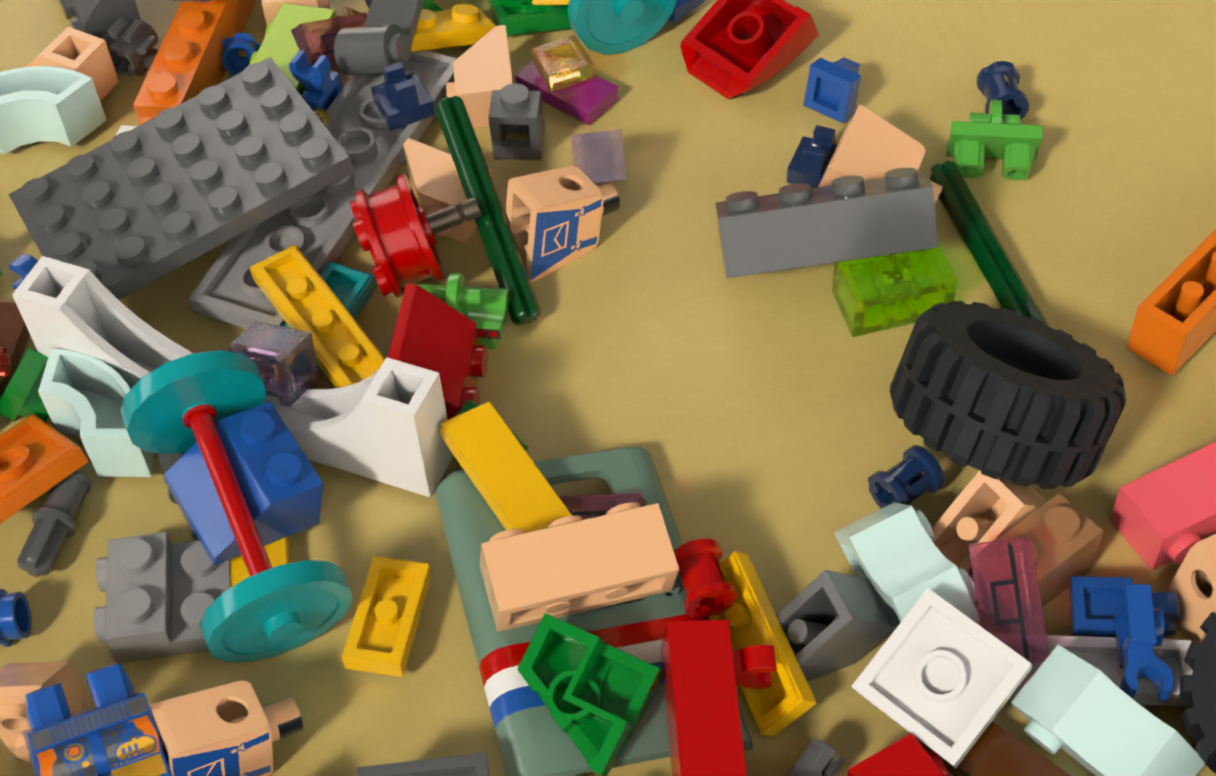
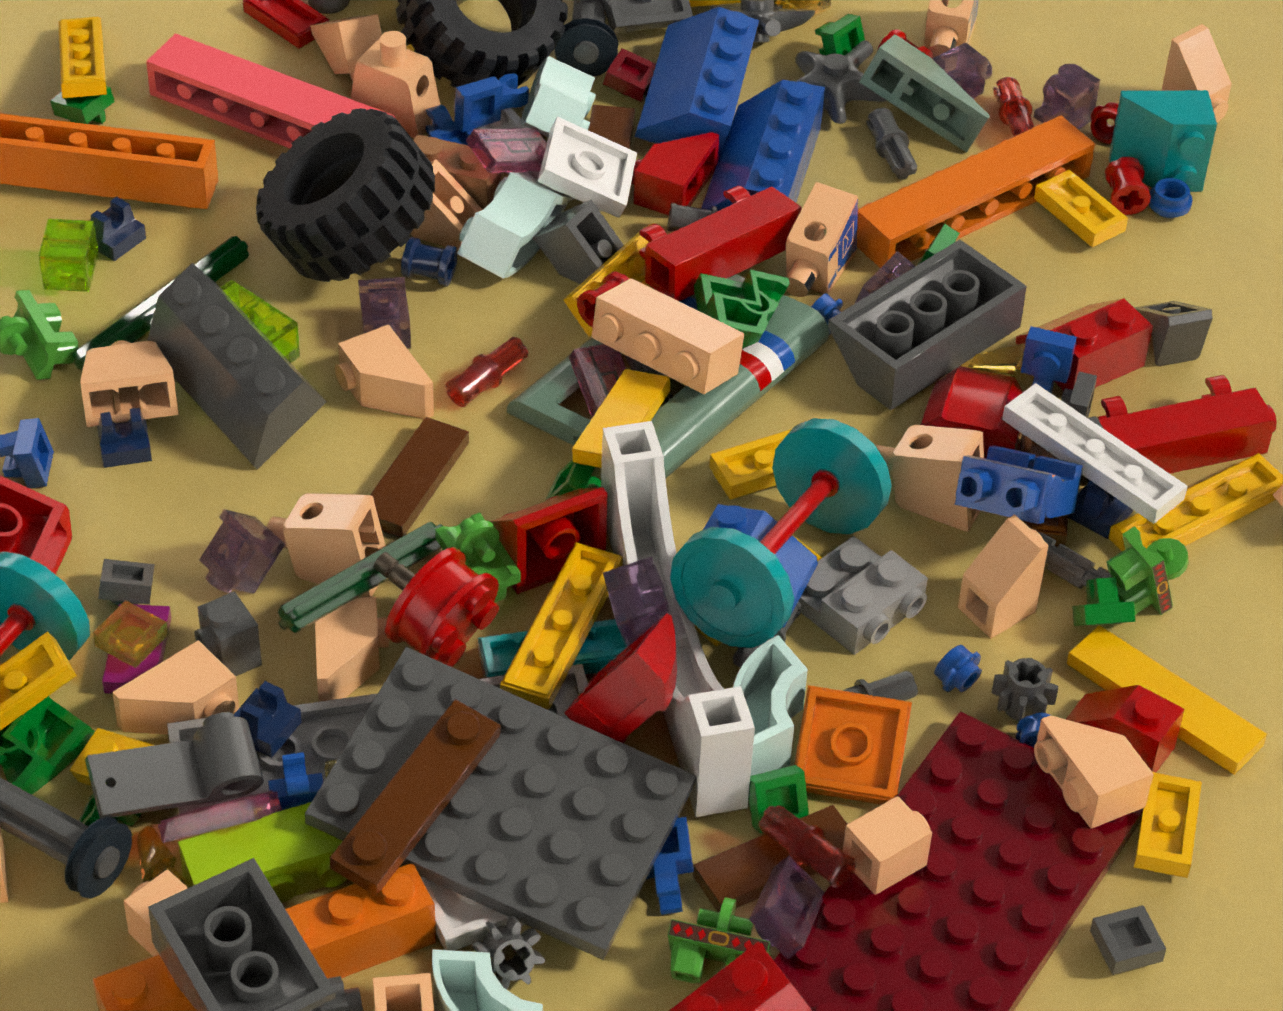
camera: 130 degrees left, 5 degrees down
(70, 143) = (525, 955): none -> dark grey gear
(190, 302) = (630, 685): none -> red slope
(209, 107) = (415, 797): none -> reddish brown plate
(613, 338) = (417, 474): none -> reddish brown tile
(635, 95) = (126, 582): none -> dark grey plate
(706, 455) = (486, 372): none -> clear red axle
(751, 364) = (384, 374): none -> light nougat slope
(842, 404) = (385, 303): none -> brick
(1098, 203) = (68, 255): none -> clear neon green brick
(1129, 259) = (117, 229): none -> dark blue tile

